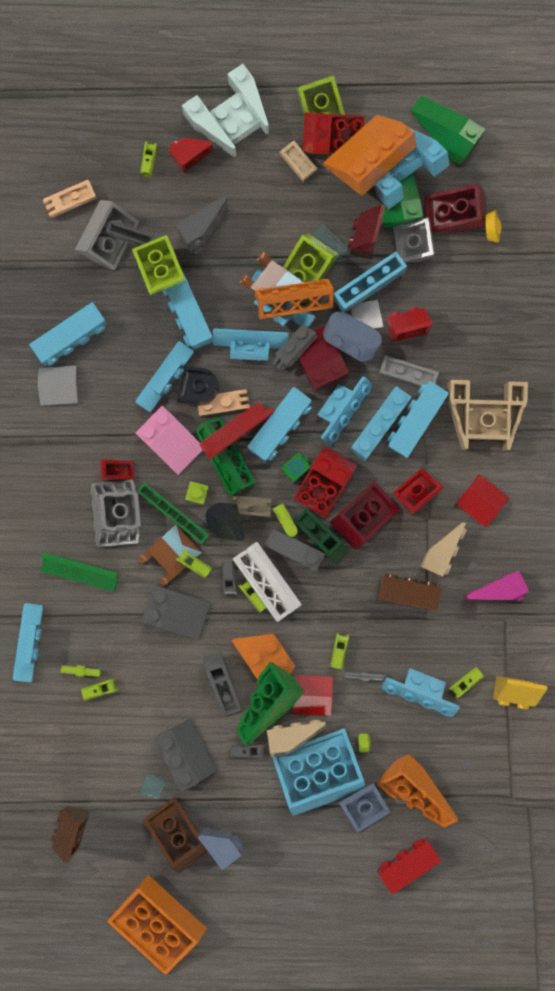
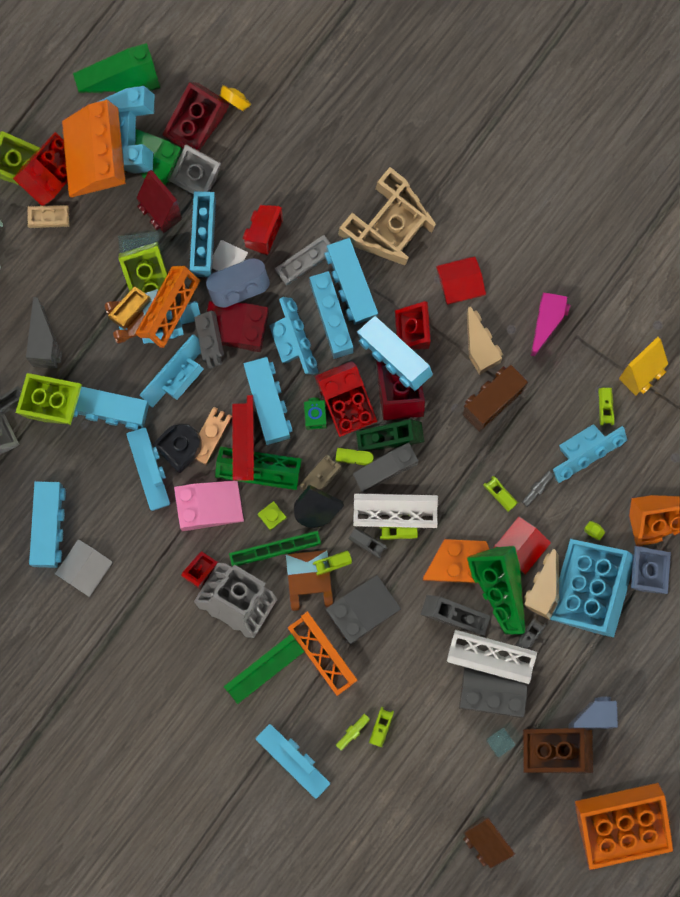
camera: 55 degrees left, 5 degrees down
(128, 606) = (329, 649): none -> orange fence
(207, 735) = (490, 660): none -> white fence
(271, 271) = (129, 307): none -> pearl gold tile
(386, 492) = (394, 353): none -> brick

